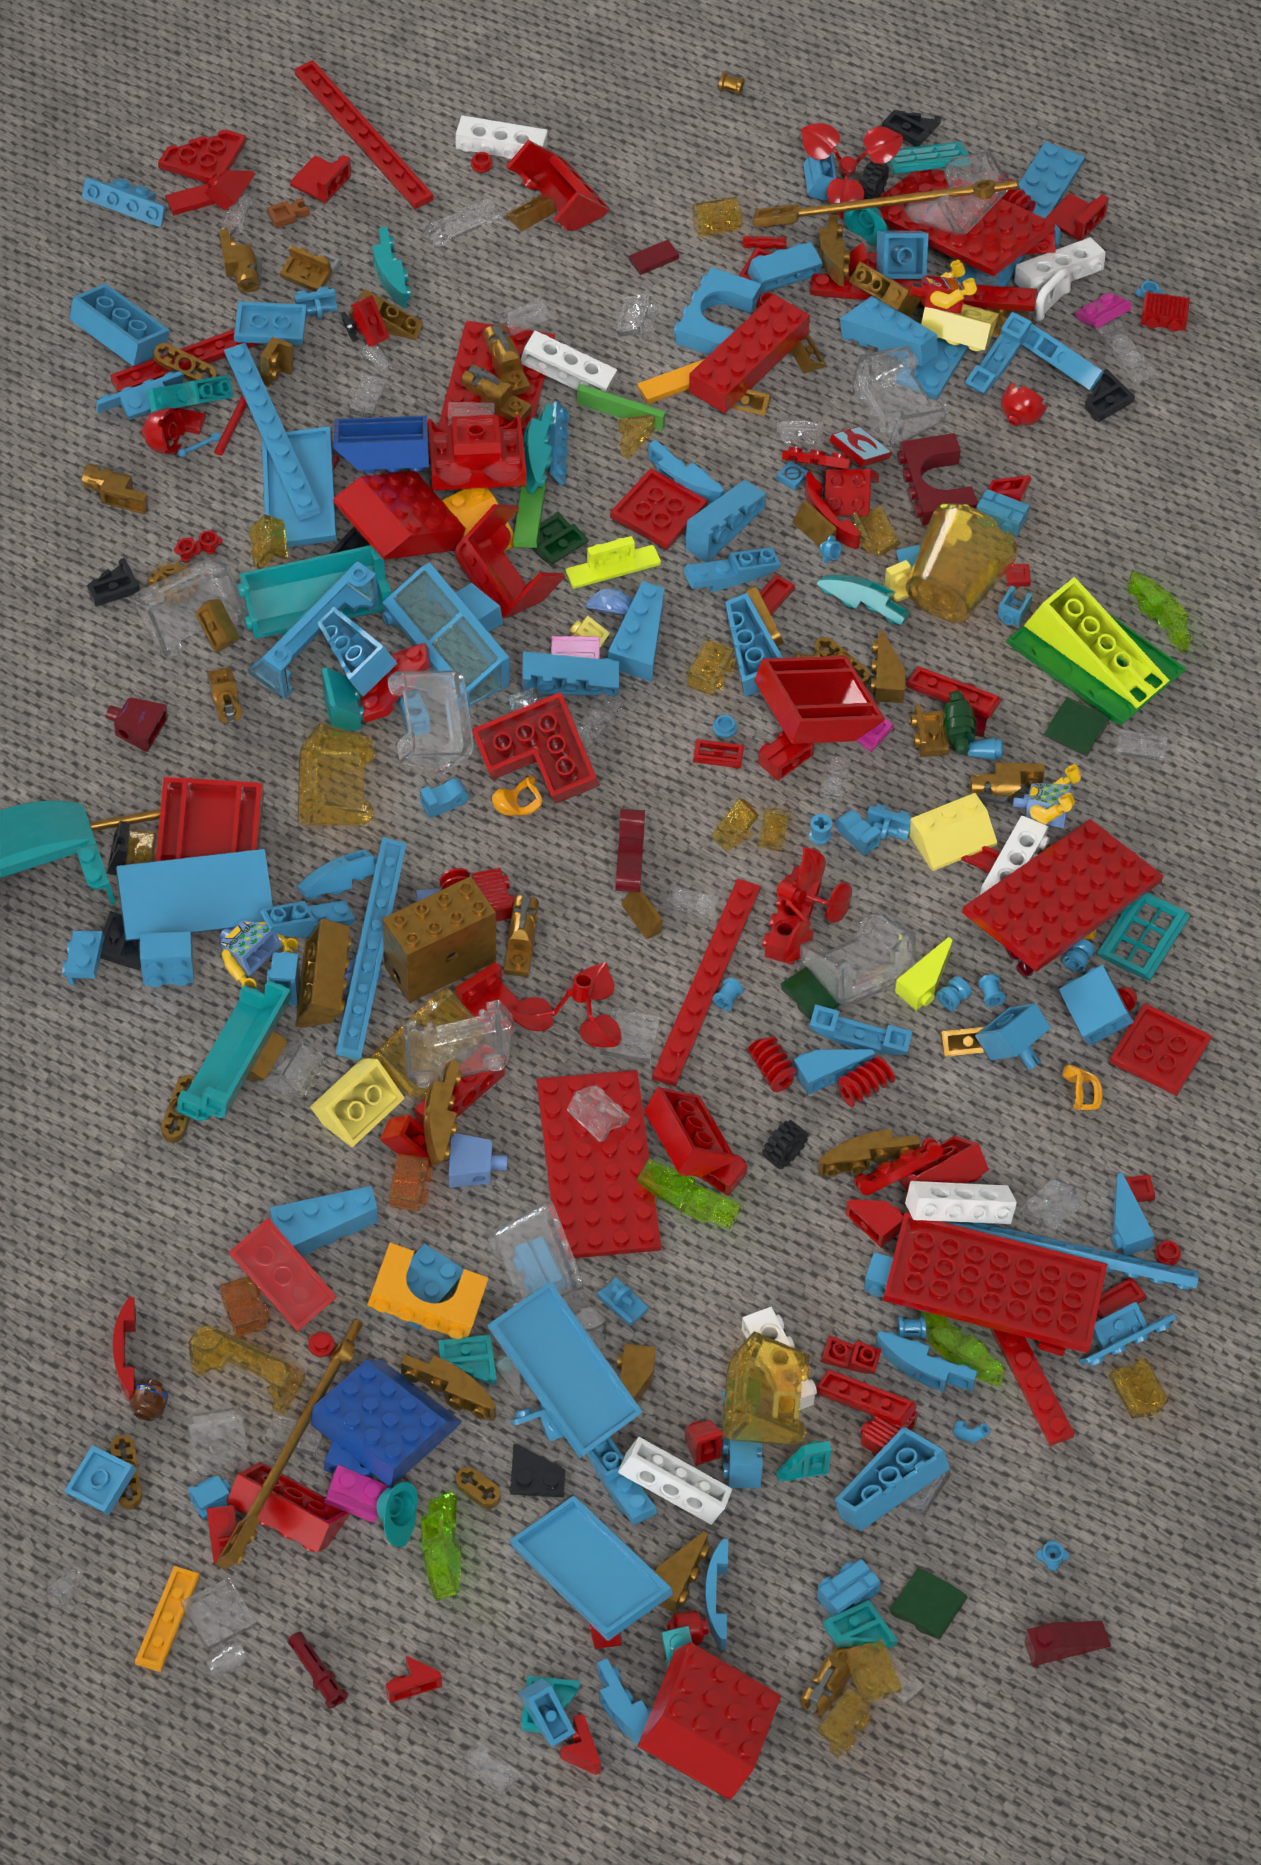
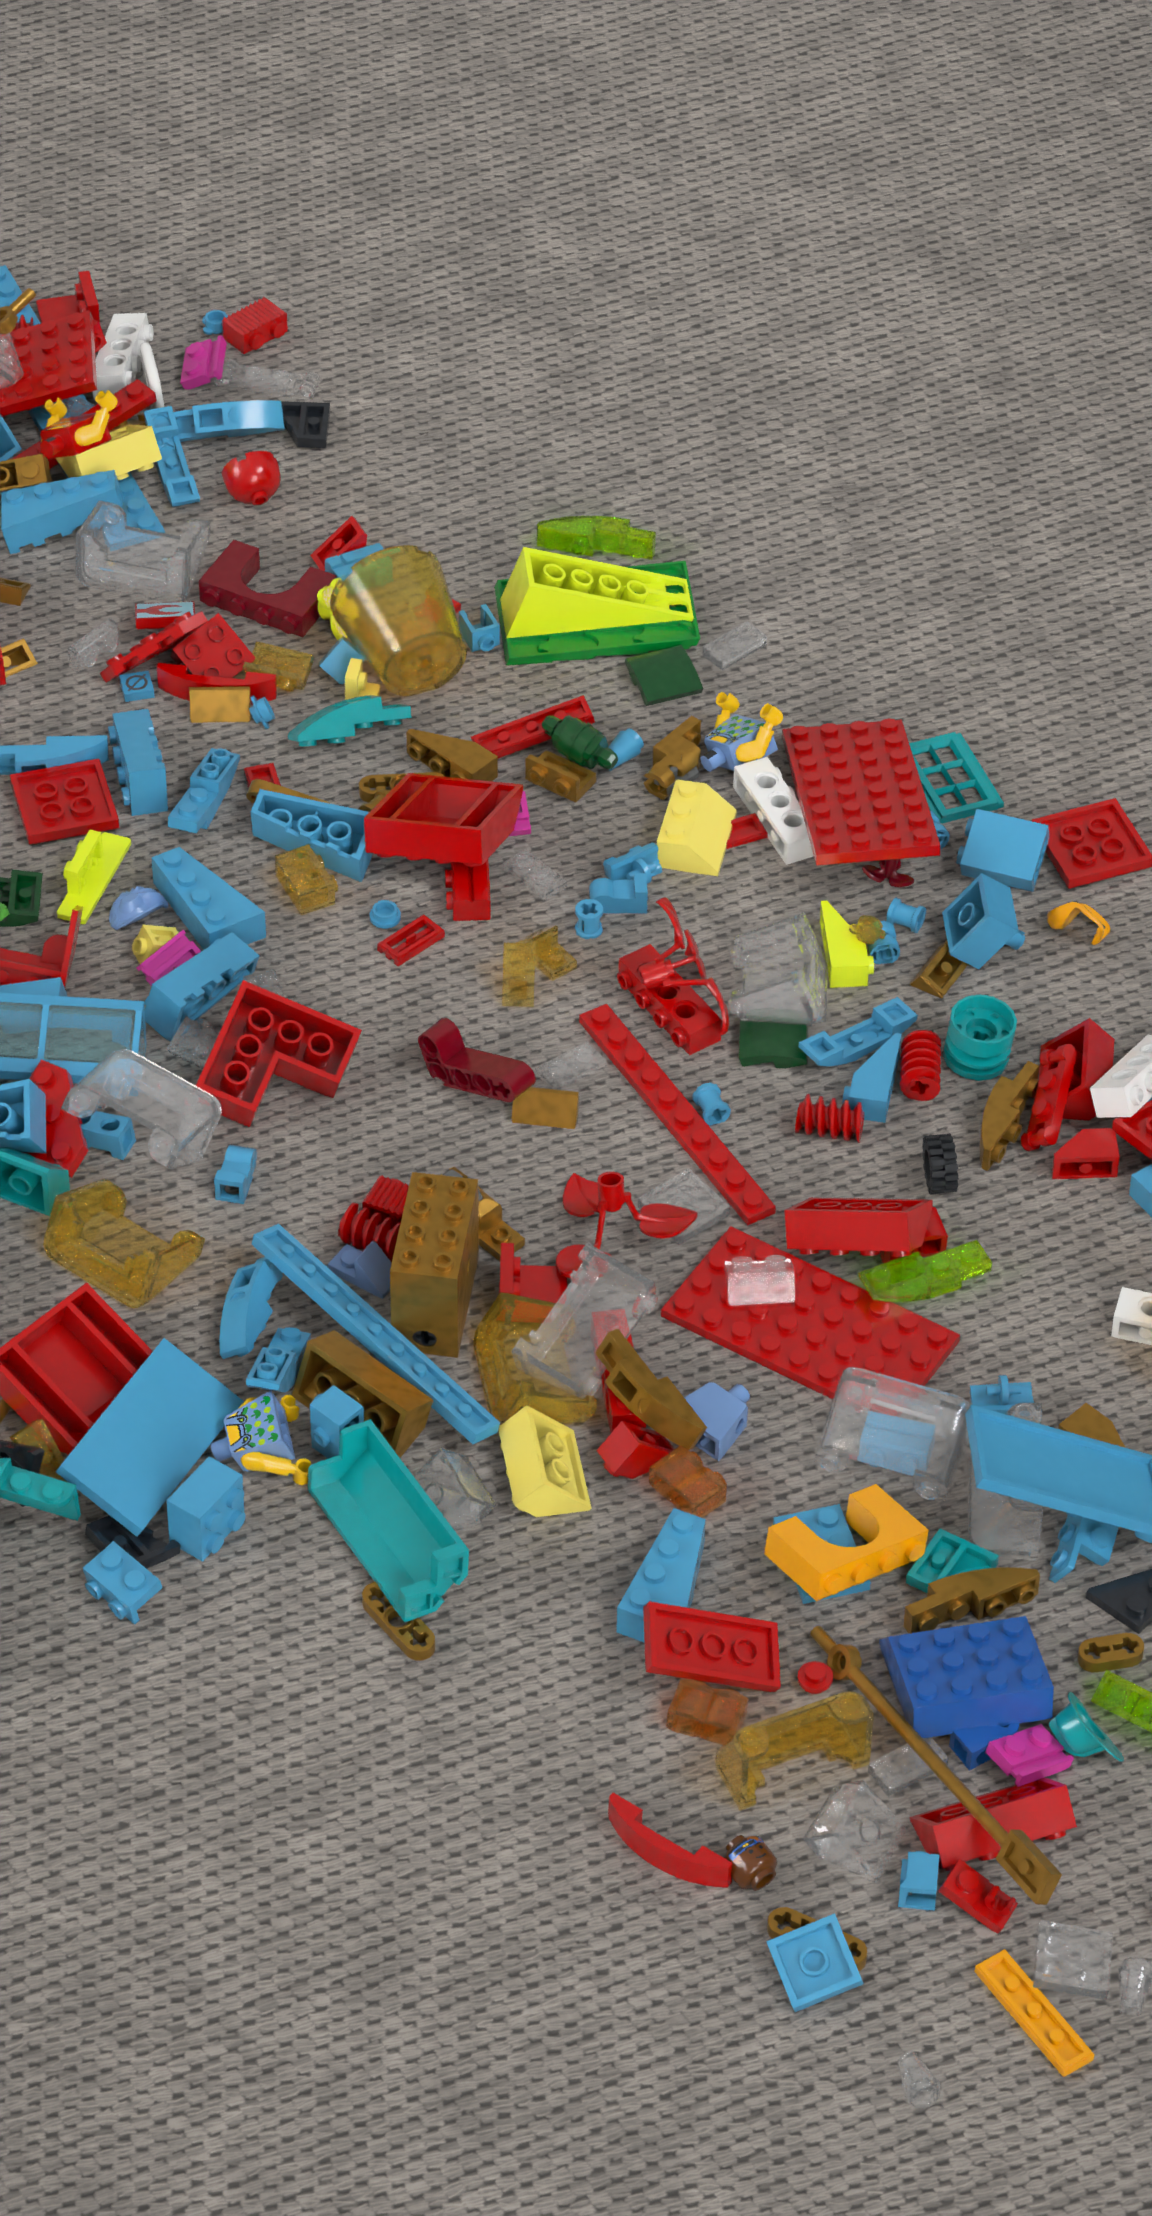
camera: 50 degrees left, 10 degrees down
(506, 800) = (295, 1133): light orange piece -> none
(916, 1084) = (979, 1037): none -> teal wheel
(947, 973) = (868, 929): none -> clear yellow plate

